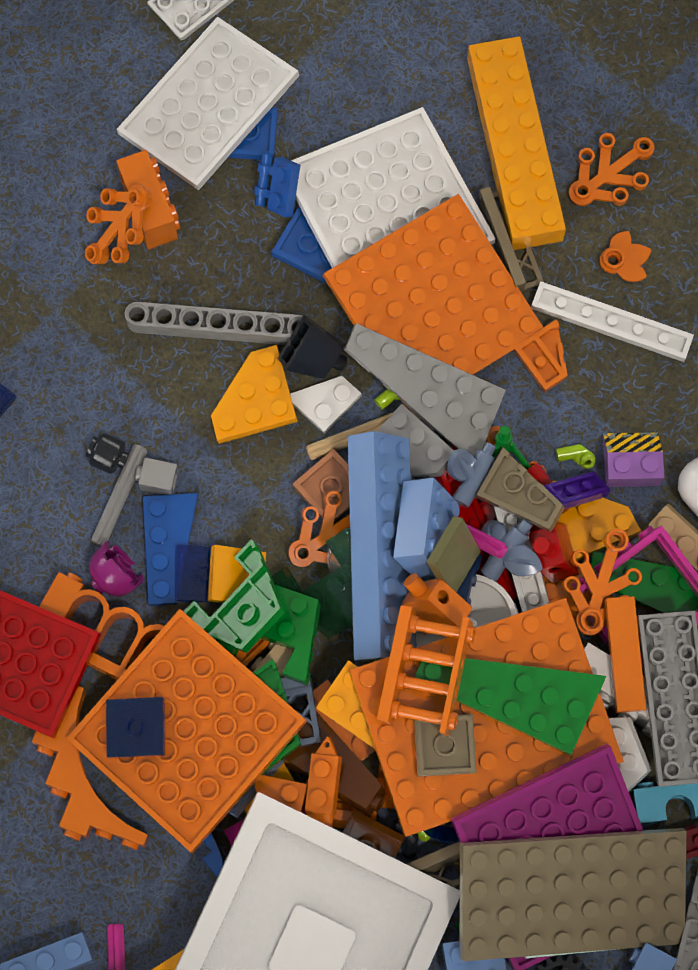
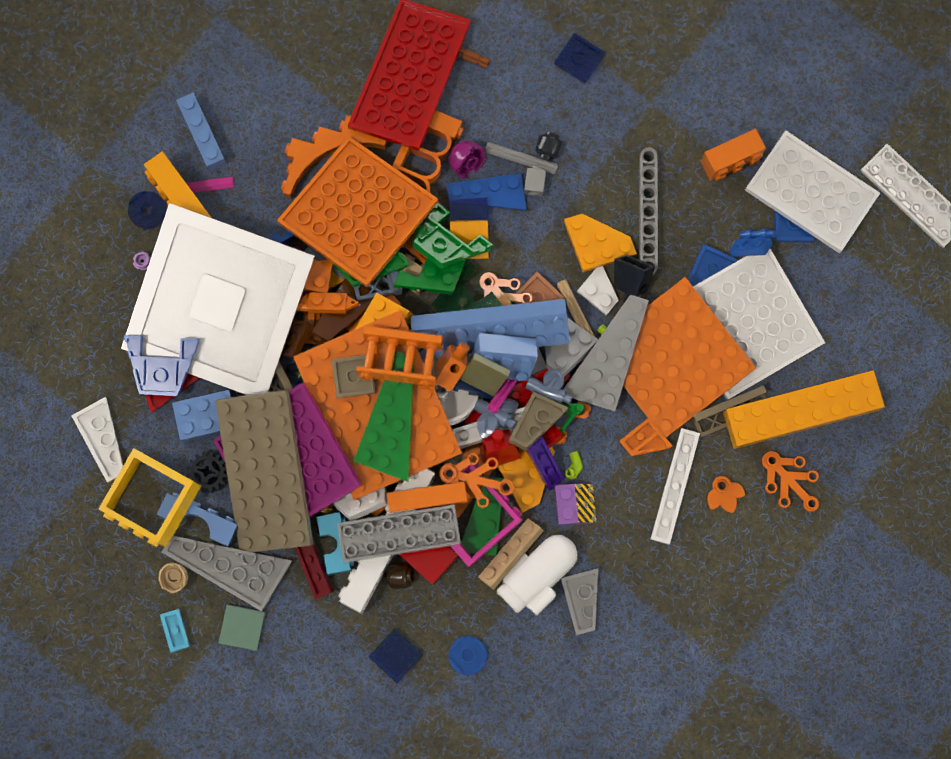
camera: 85 degrees right, 5 degrees up
(135, 727) = (356, 177): clear blue plate -> none
(137, 200) = (724, 144): orange plant -> none

